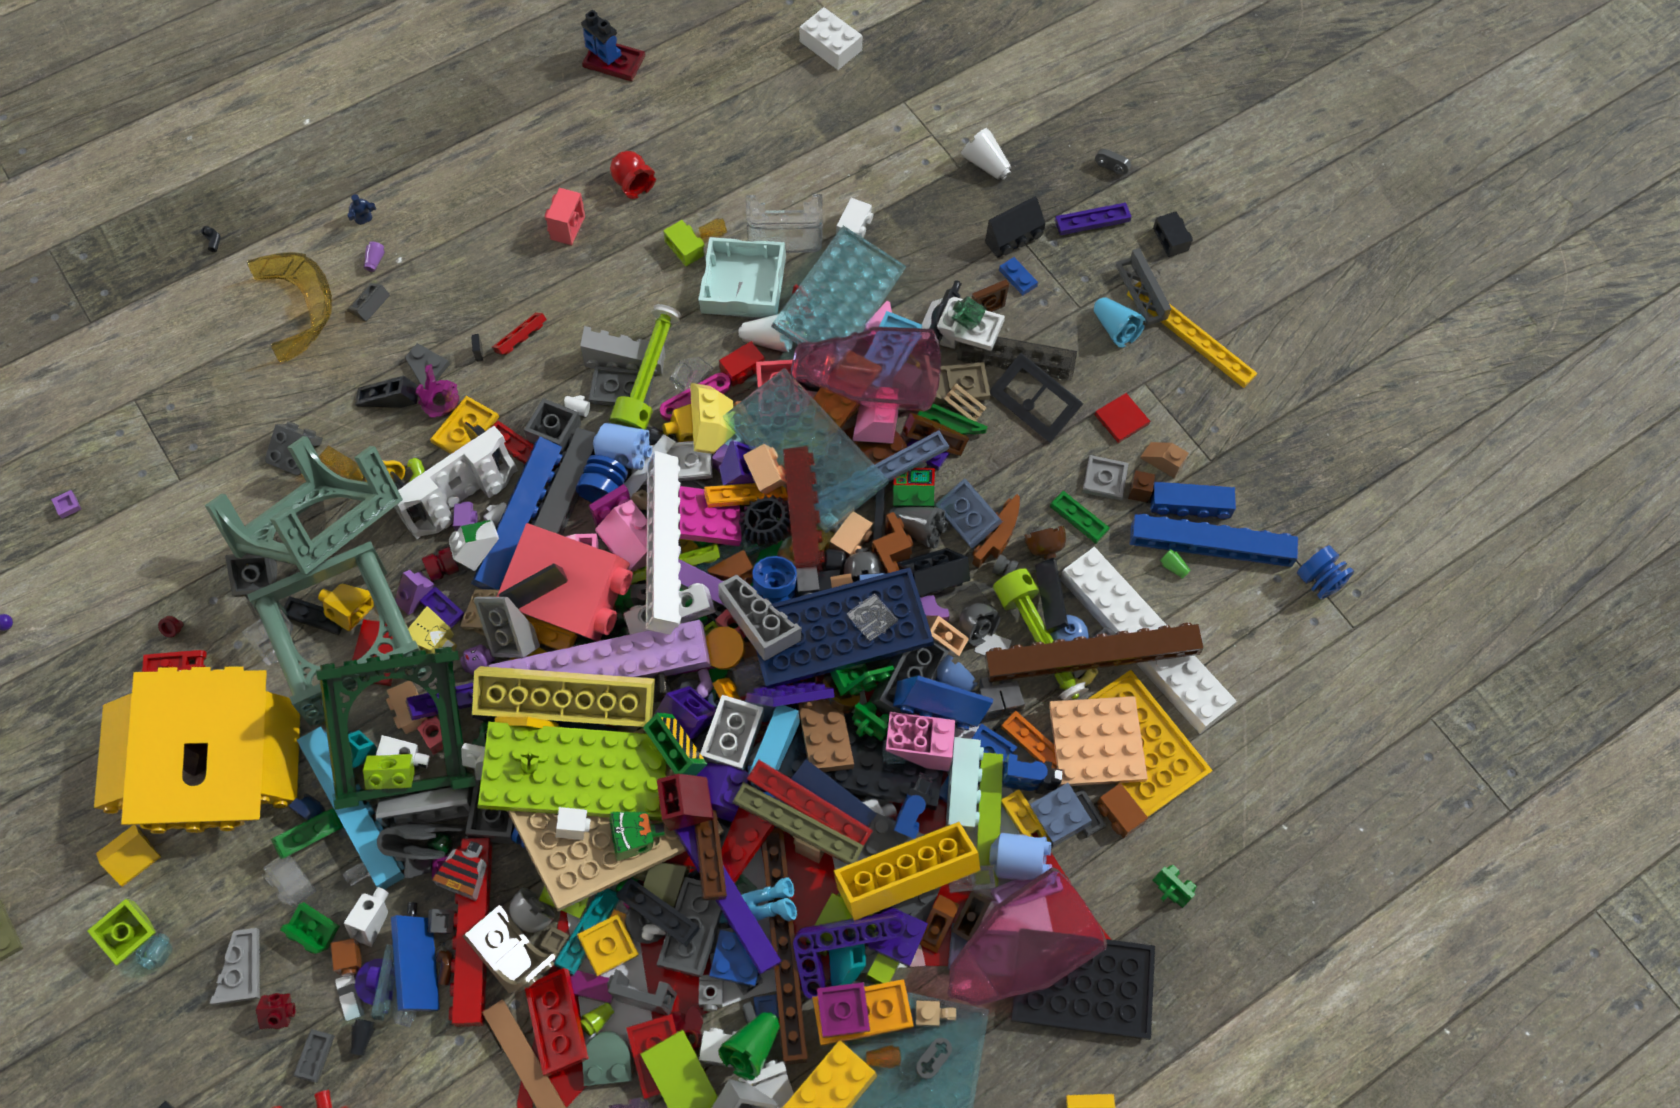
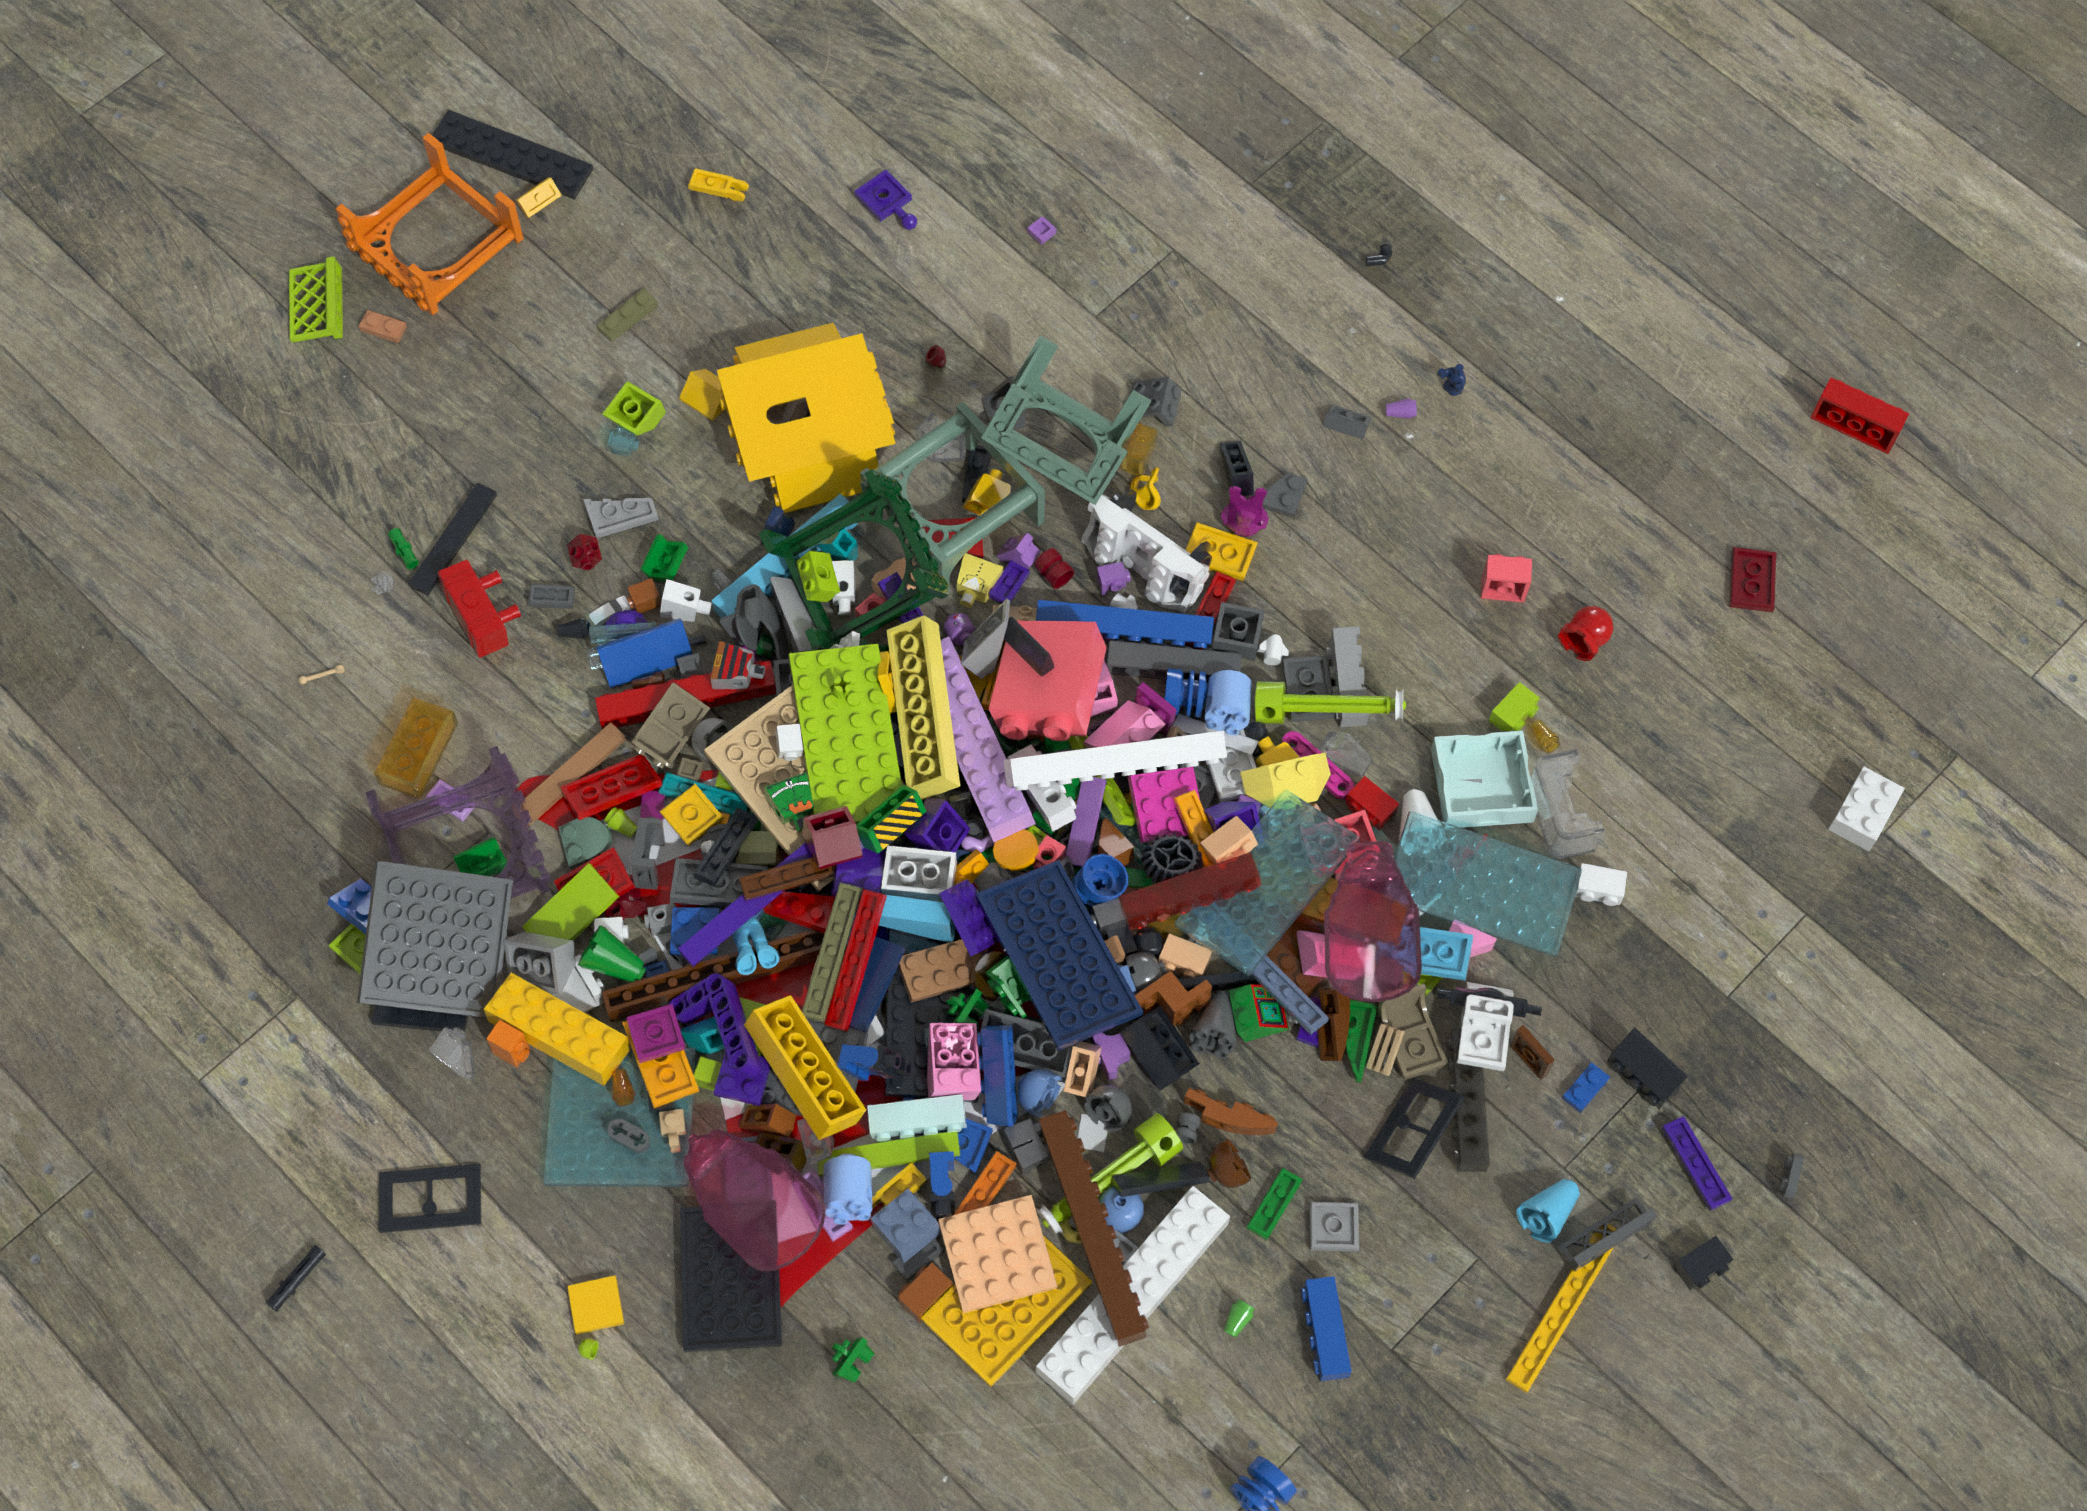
camera: 80 degrees right, 0 degrees up
(181, 659) = (898, 371): red plate -> none
(289, 880) = (707, 529): clear brick -> none
(306, 833) = (745, 524): green tile -> none
(313, 285) = (1358, 353): clear yellow piece -> none
(416, 467) = (1158, 520): lime arm -> none
(473, 543) = (1078, 587): white slope -> none
(477, 347) = (1317, 536): black tile -> none
(519, 334) = (1346, 573): red plate -> none
(601, 36) = (1763, 553): hips -> none
(759, 620) = (1042, 869): light grey wedge -> none
(872, 617) = (1074, 981): clear piece -> none
(968, 313) = (1490, 1020): clear green brick -> none
(969, 513) = (1242, 1075): sand blue tile -> none
(987, 155) = (1747, 1020): white cone -> none
(1122, 417) = (1420, 1235): red tile -> none
(1141, 486) = (1328, 1264): reddish brown brick -> none
(1165, 457) = (1376, 1291): medium nougat slope -> none
(1214, 540) = (1279, 1360): blue brick -> none

